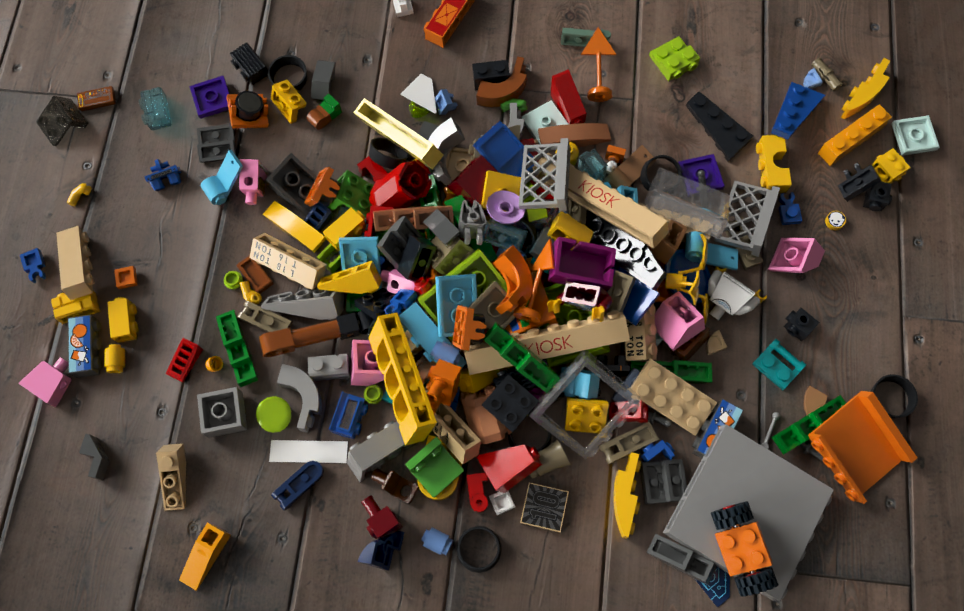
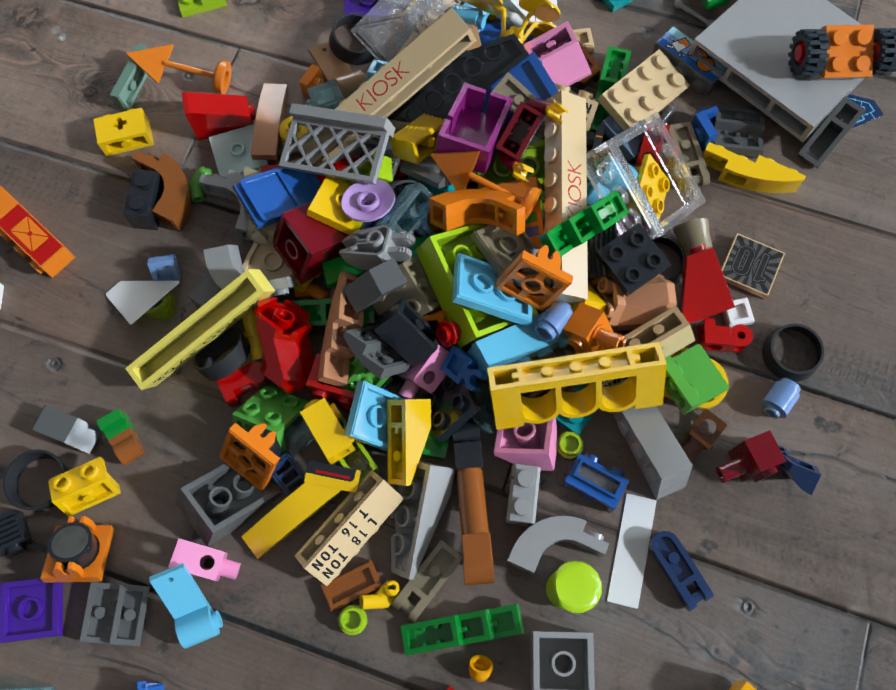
camera: 80 degrees left, 0 degrees up
(316, 240) = (332, 476): none -> sticker
(540, 45) = (123, 131): none -> yellow brick

